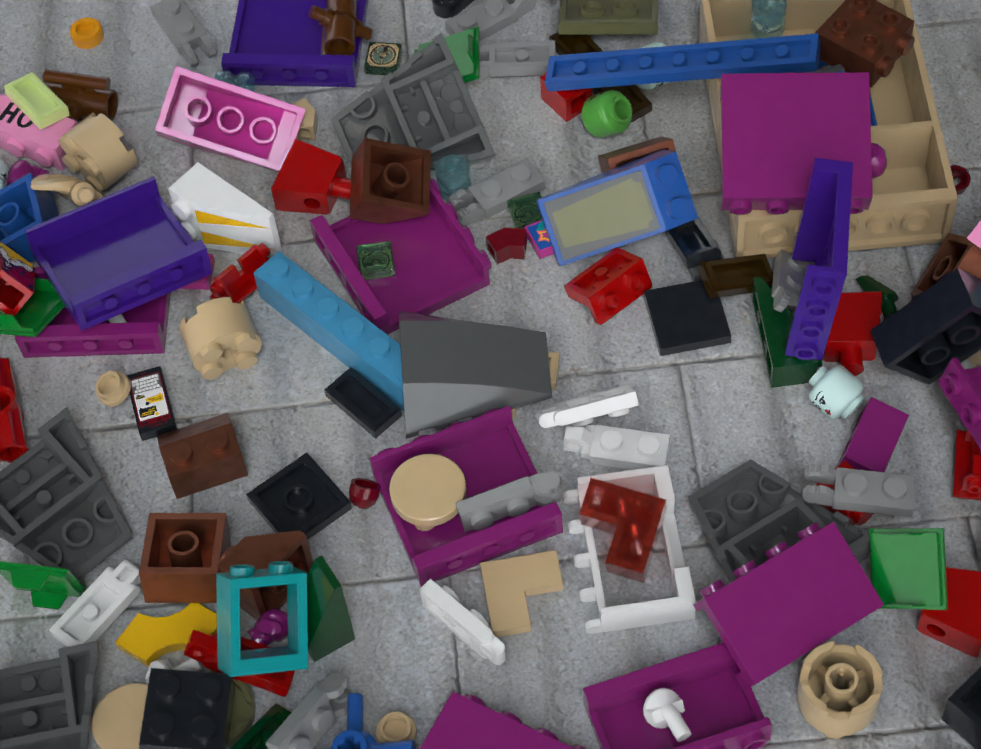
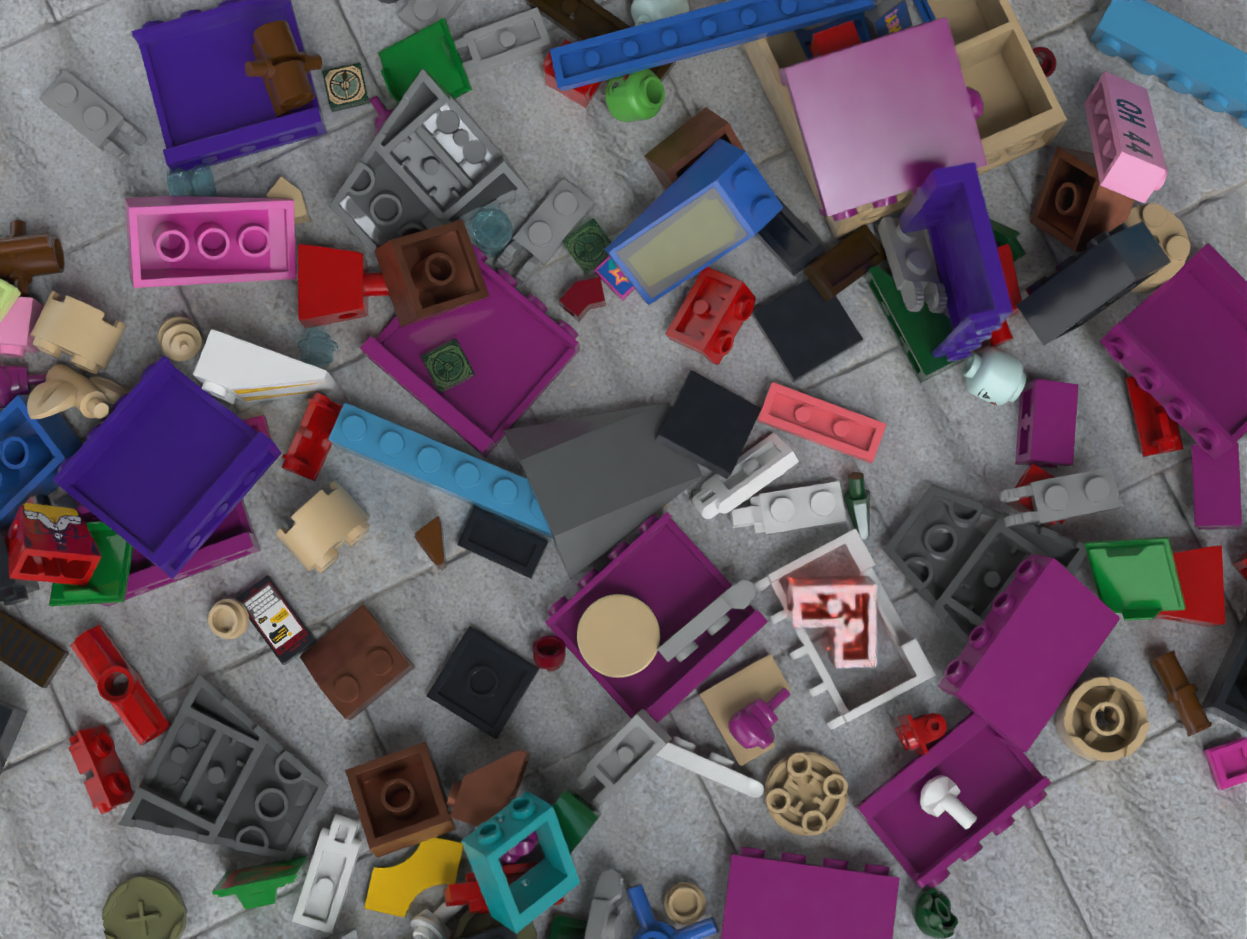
camera: 20 degrees left, 25 degrees up
(167, 178) = (179, 338): none -> tan wheel
(283, 219) = (317, 348): none -> clear light blue plate
(305, 378) = (432, 542): none -> reddish brown slope
(389, 582) = (623, 756): none -> light grey hinge
(519, 593) = (753, 722): none -> magenta piece
(543, 676) = (805, 793): none -> tan tile
(572, 357) = (708, 424): none -> black tile
(665, 638) = (920, 731): none -> red hinge
(672, 387) = (822, 422): none -> coral plate
(680, 458) = (858, 504): none -> dark green bar
(925, 697) = (1181, 693): none -> reddish brown pin

